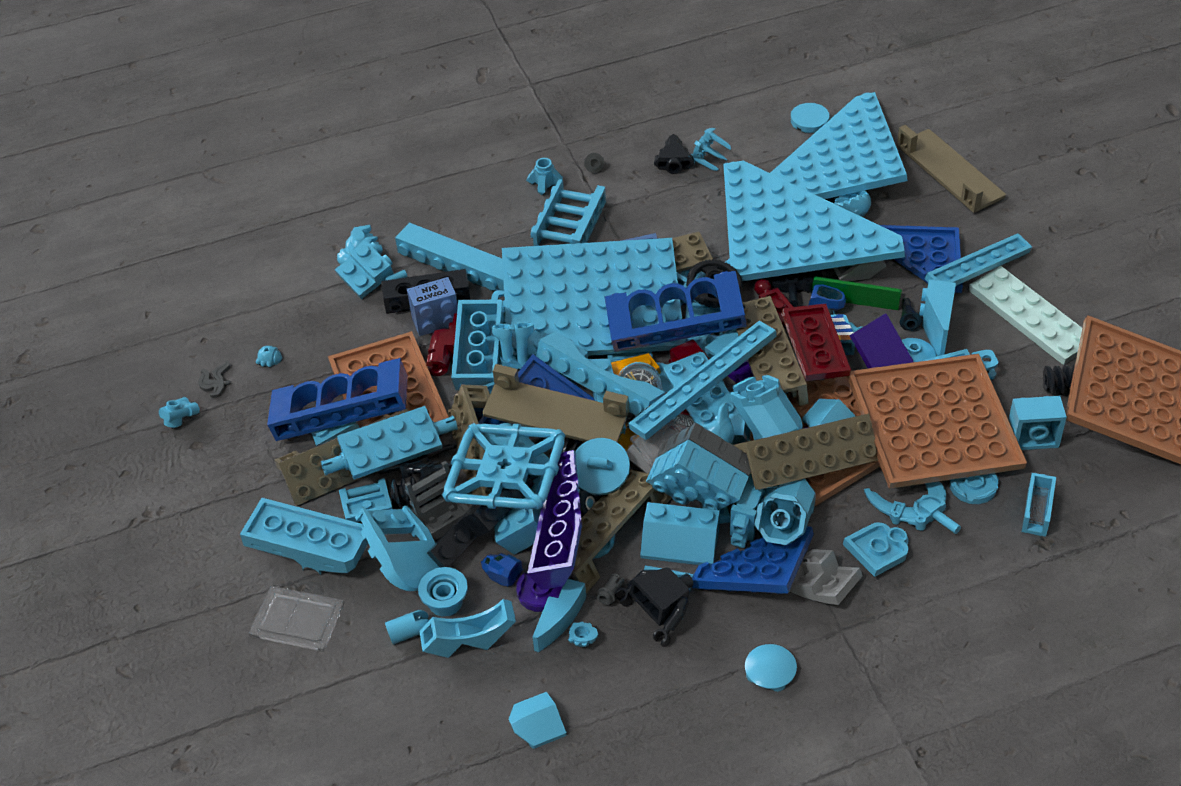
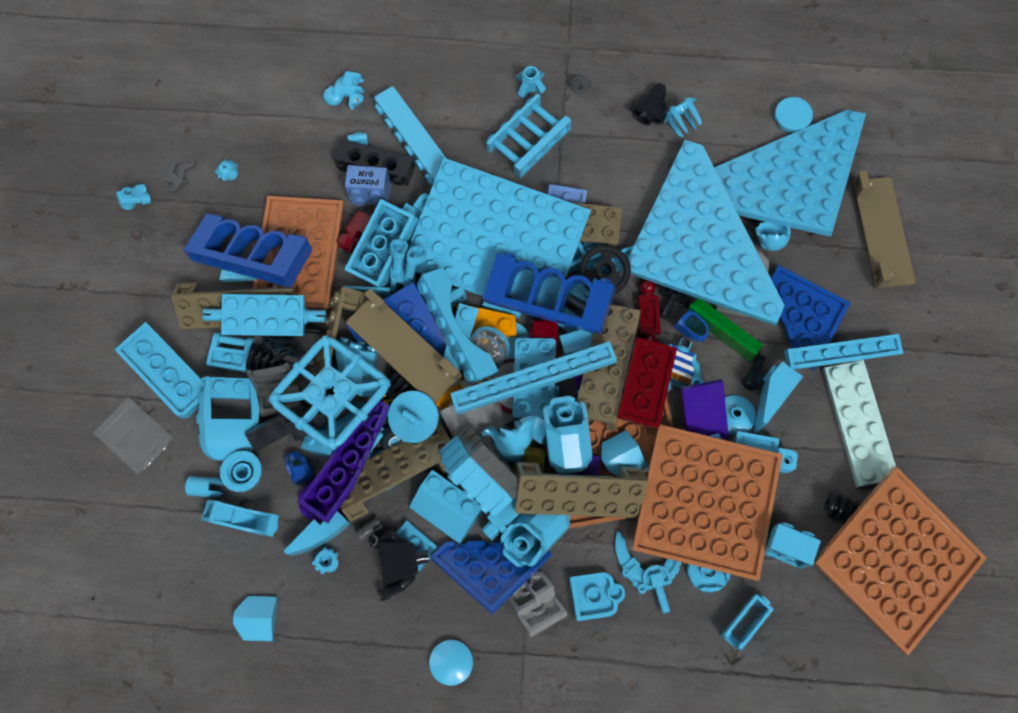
camera: 25 degrees right, 25 degrees up
(365, 268) = (337, 117): medium azure plate -> none

